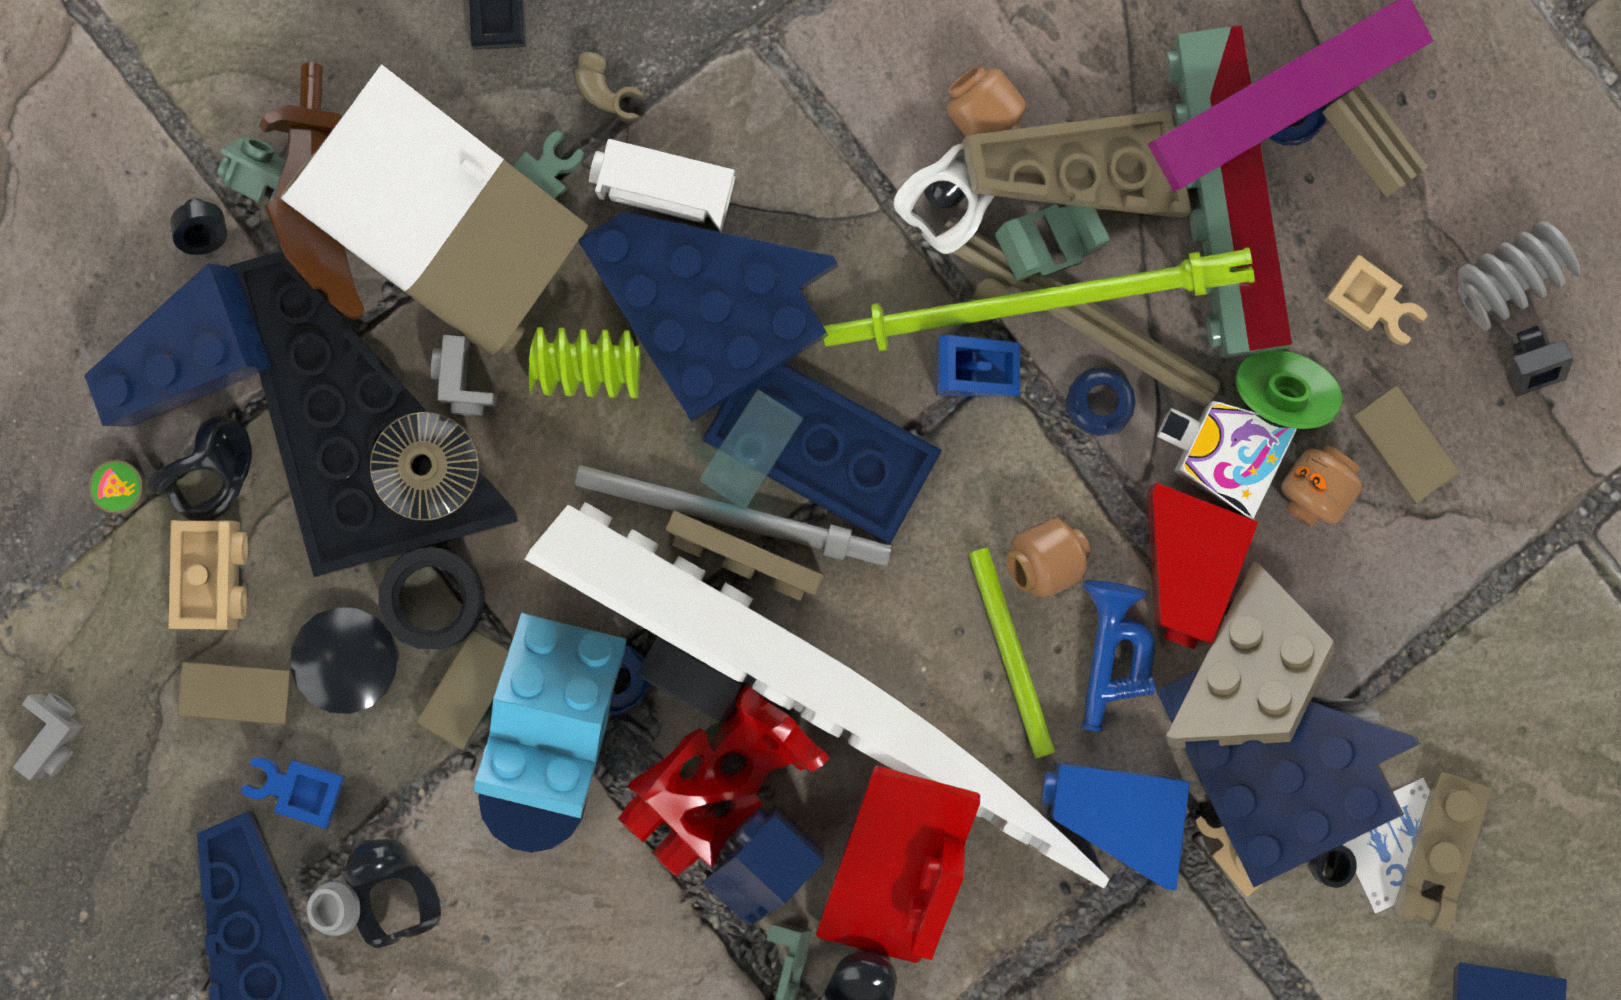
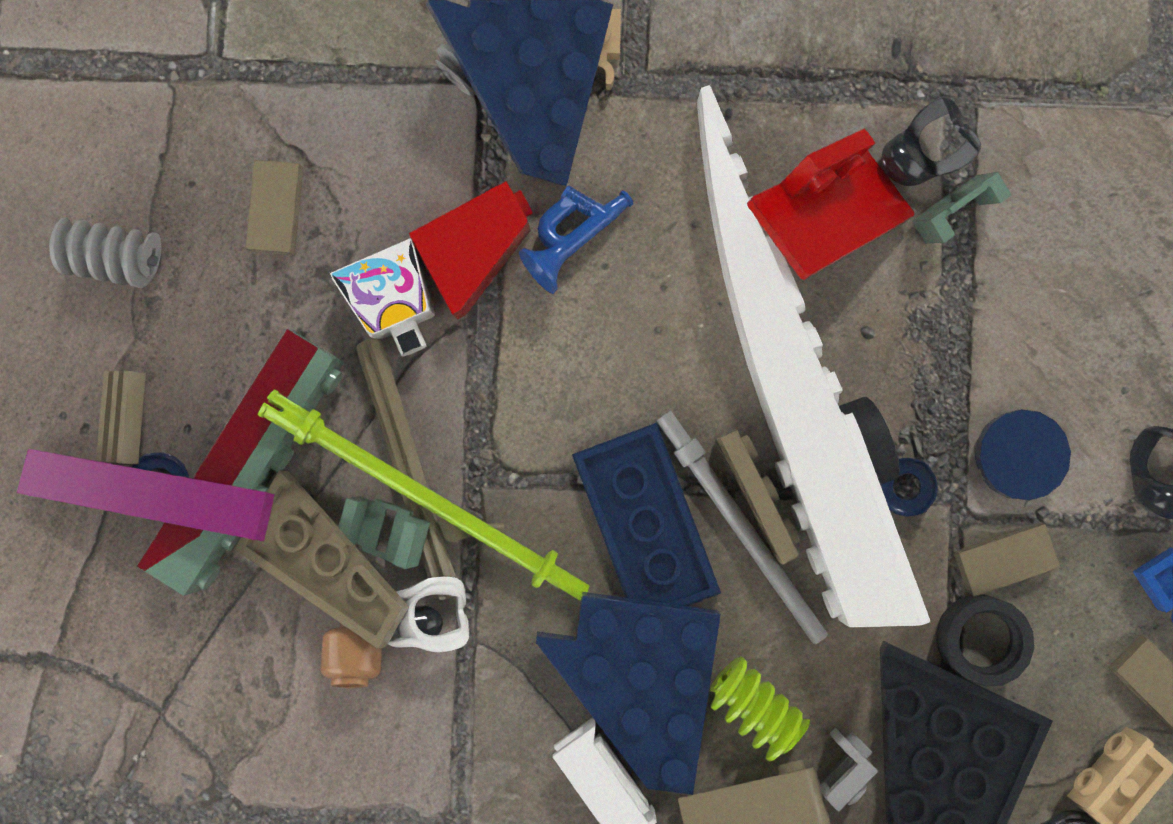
camera: 130 degrees left, 0 degrees up
(344, 660) = (1074, 647): black dish -> none
(452, 470) = (904, 717): dish -> none
(550, 715) = (977, 498): medium azure bracket -> none
(691, 782) = (931, 366): red hips -> none
(751, 449) = (696, 560): clear light blue plate -> none
(765, 866) = (909, 281): dark blue wedge -> none
(977, 367) = (503, 488): blue slope -> none
(1011, 652) = (637, 288): lime bar -> none
(1048, 558) = (563, 326): medium nougat head -> none
(1081, 413) = (460, 407): dark blue piece -> none
(1124, 814) = (655, 124): blue slope -> none
(1255, 670) = (493, 138): wing -> none
(1289, 389) = (315, 302): bright green dish -> none
(1321, 486) = (348, 223): medium nougat head -> none
(1368, 297) = (214, 320): tan plate -> none
(1536, 363) = (143, 186): black tile -> none

